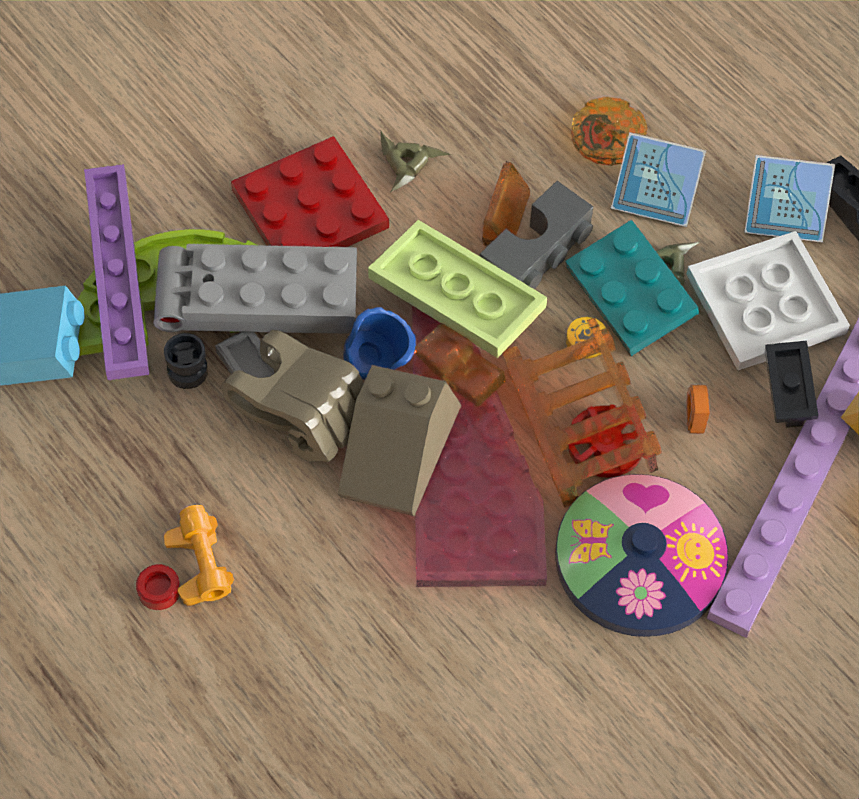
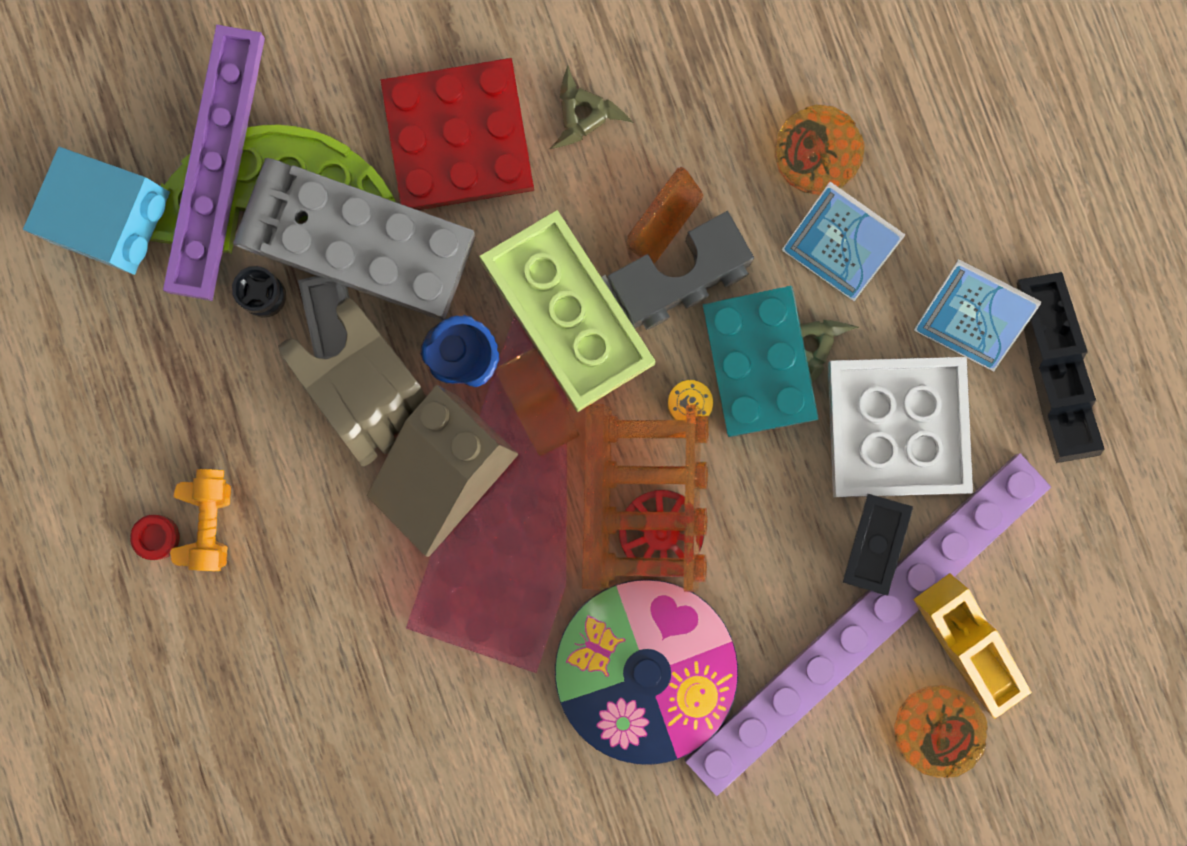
camera: 20 degrees right, 25 degrees up
(697, 408) = (770, 530): orange tile -> none

